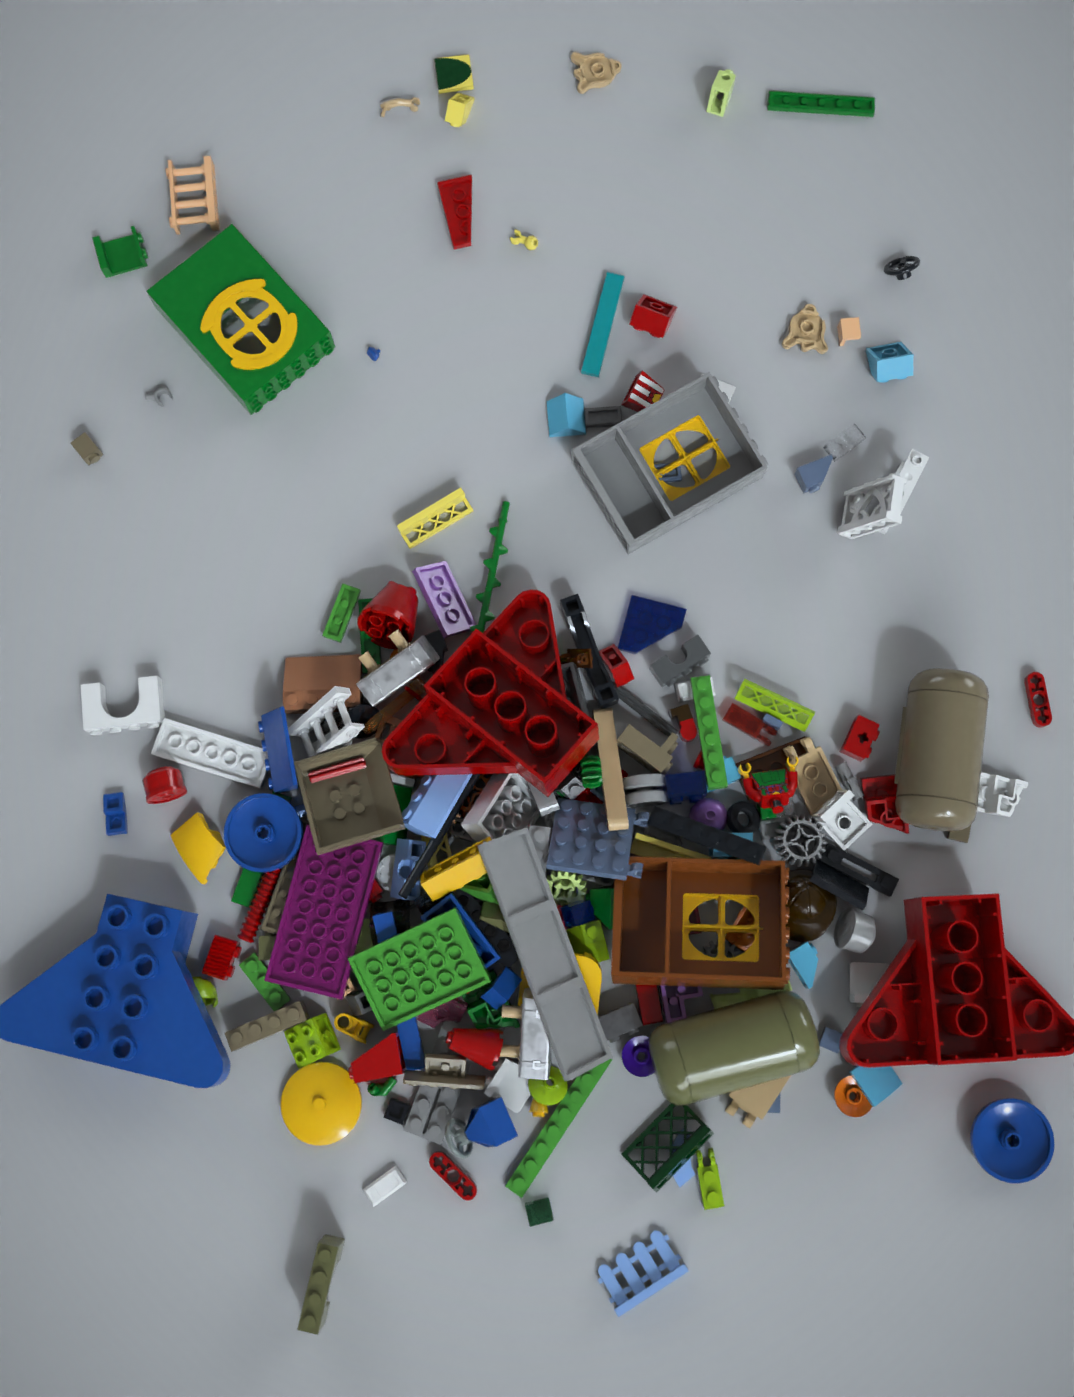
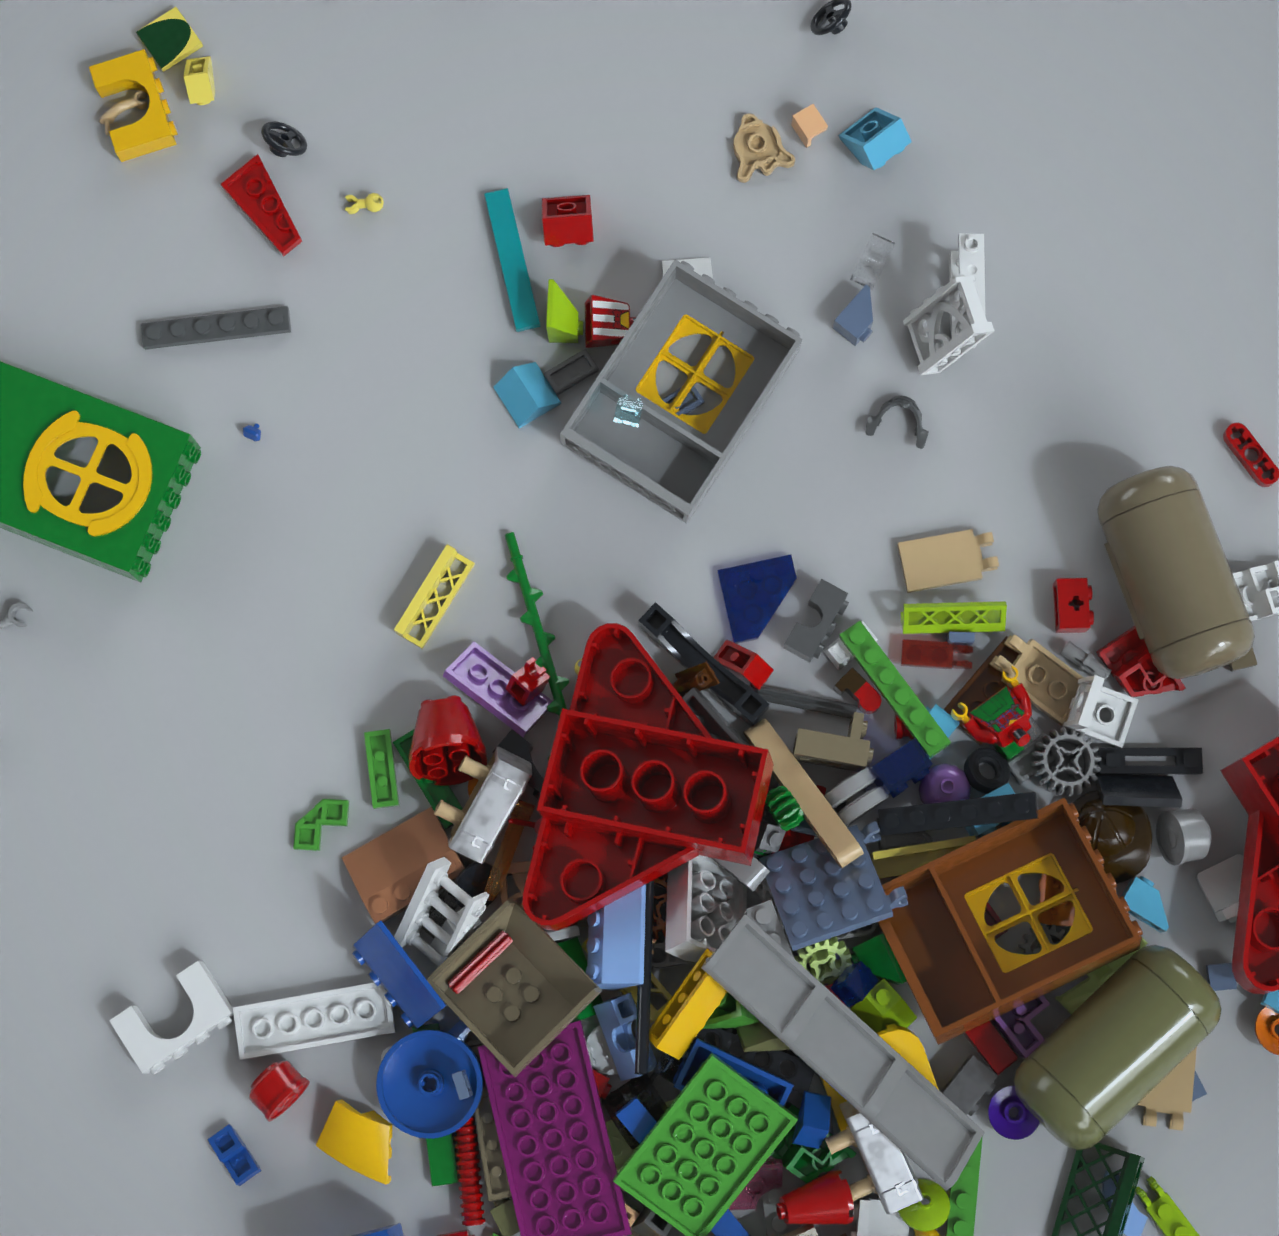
camera: 25 degrees left, 0 degrees up
(282, 843) = (462, 1084): none -> sand blue tile
(290, 623) = (309, 827): none -> bright green tile
(385, 274) = (216, 327): none -> dark grey plate
(410, 127) = (154, 129): none -> yellow arch
(466, 603) = (527, 682): none -> red brick
(490, 174) = (280, 143): none -> black piece
(614, 377) = (562, 317): none -> lime slope
(624, 456) = (628, 411): none -> clear light blue tile
(789, 665) = (945, 560): none -> tan tile
(816, 546) = (905, 402): none -> dark grey helmet

